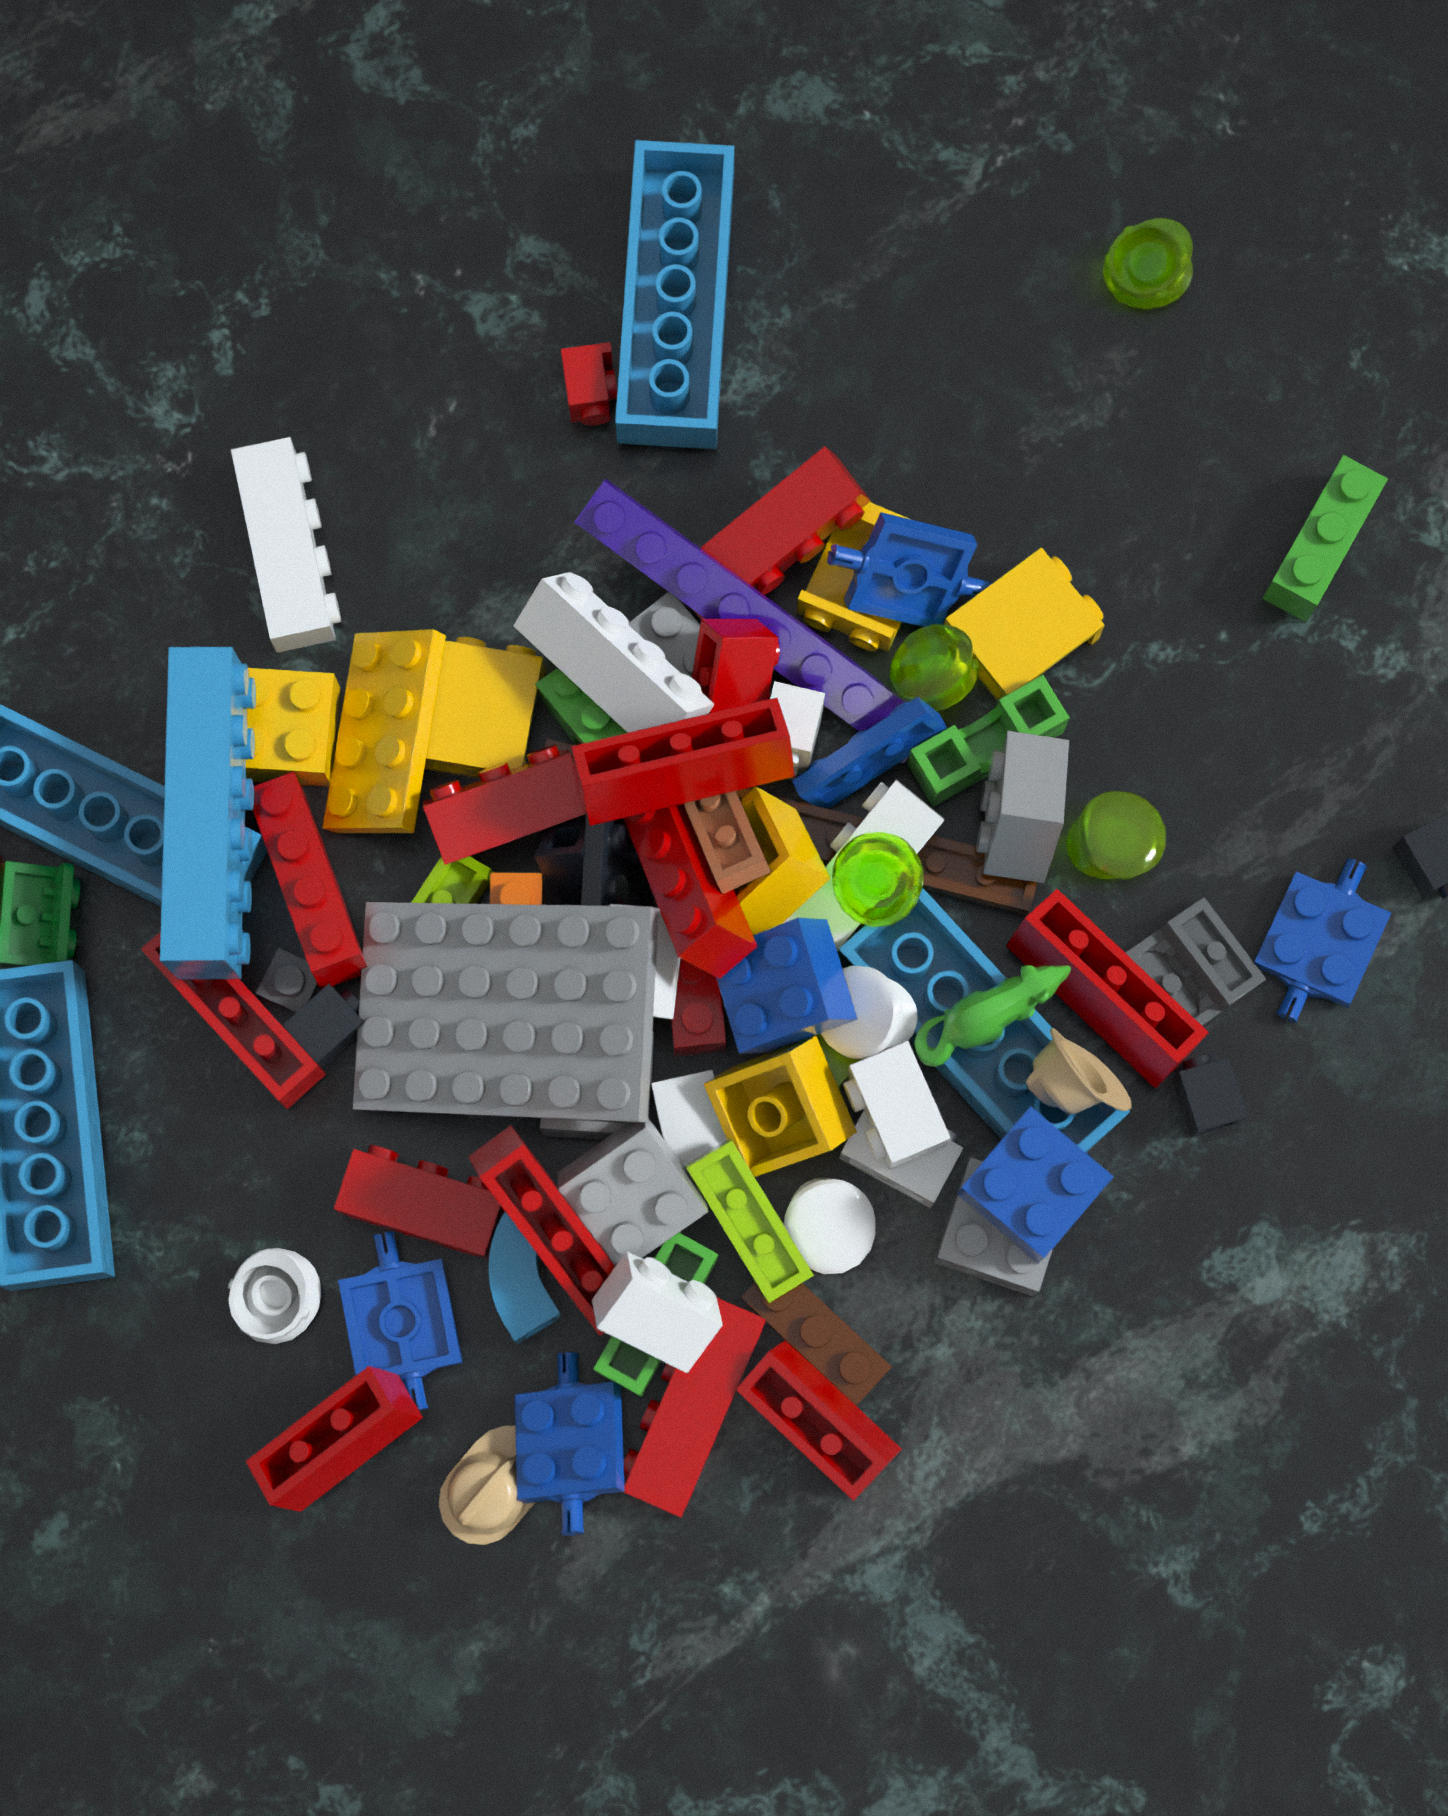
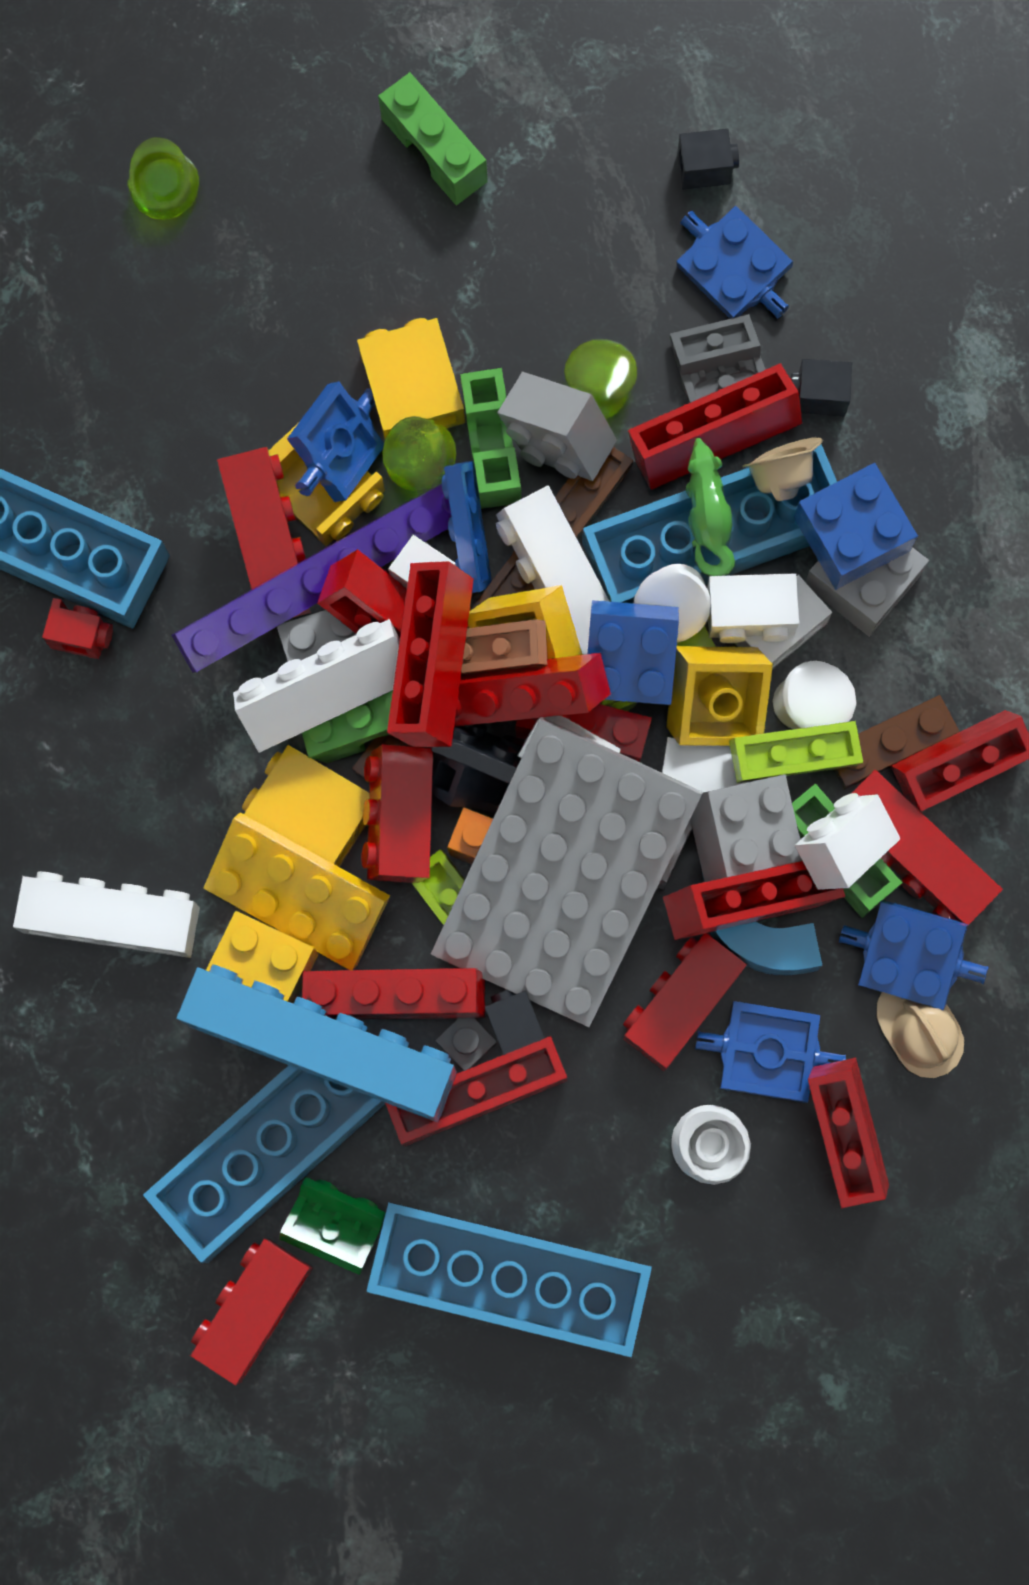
camera: 65 degrees left, 0 degrees up
(877, 879) = (573, 552): clear neon green piece -> none

